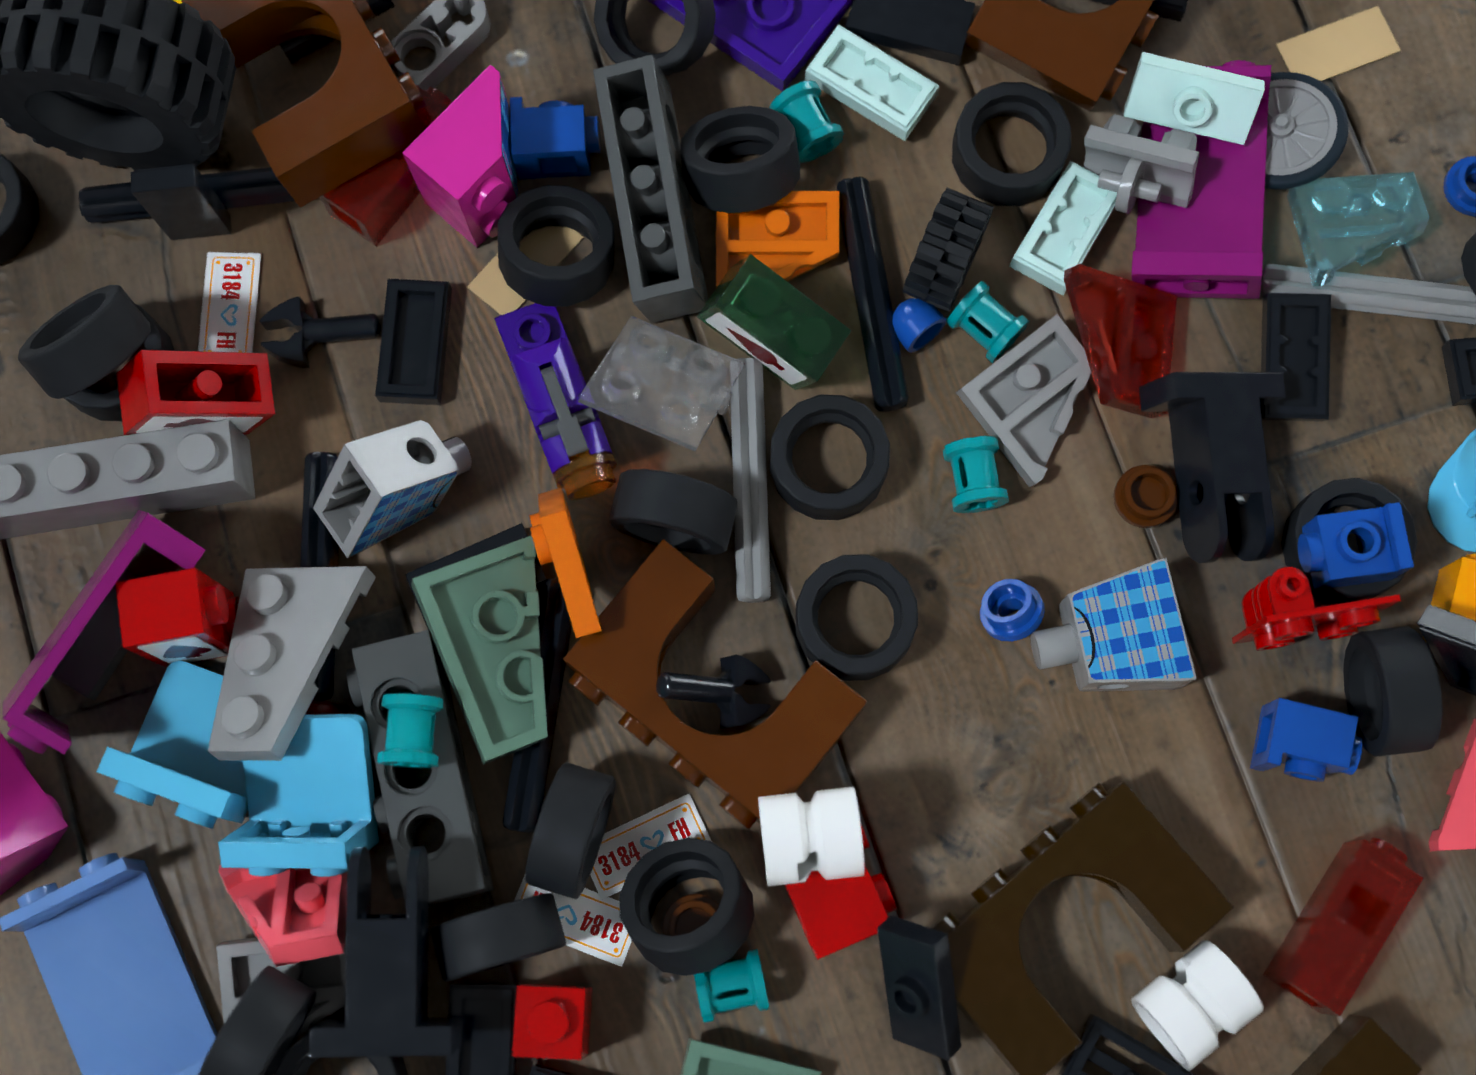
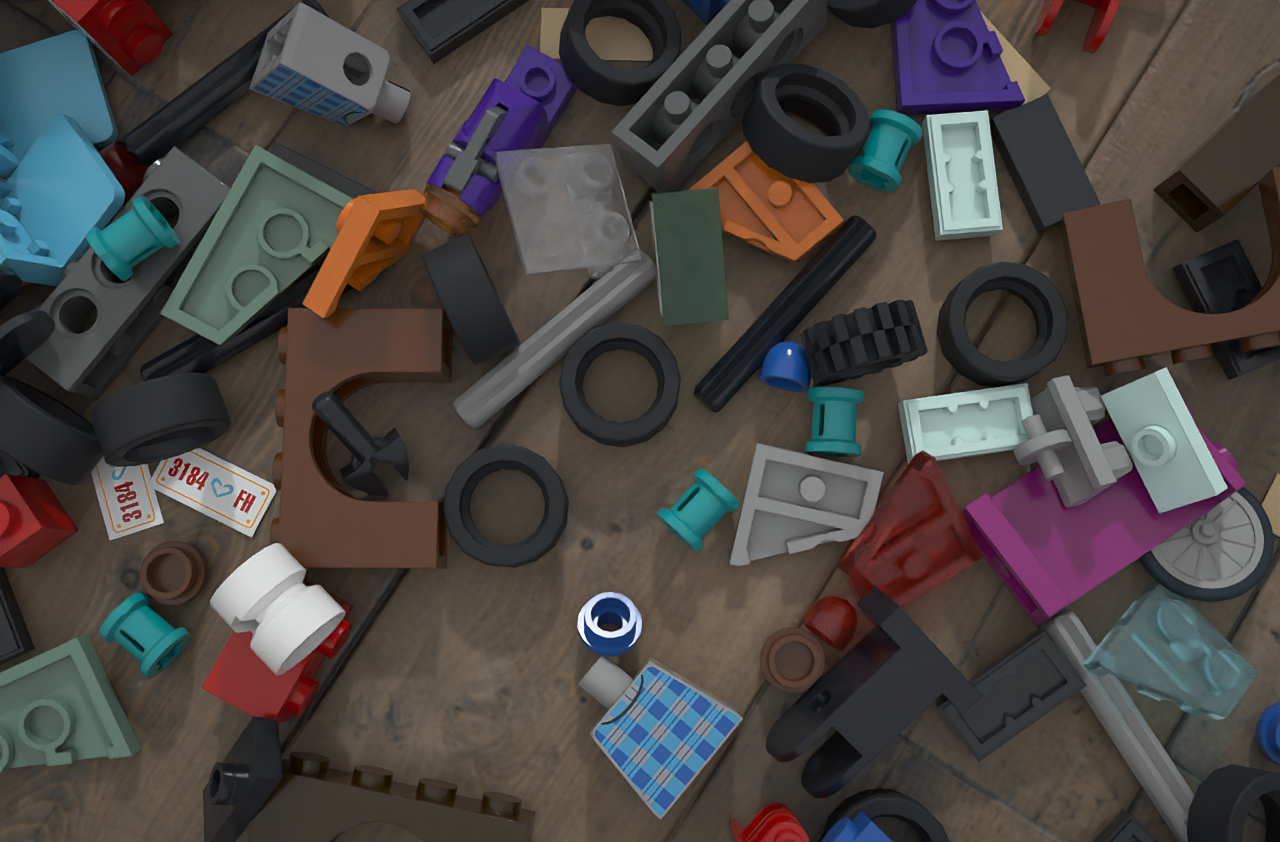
camera: 50 degrees right, 5 degrees up
(276, 651) = (132, 92): light grey wing -> none
(666, 868) = (158, 514): black tyre -> none
(1139, 443) = (832, 621): none -> clear red hinge

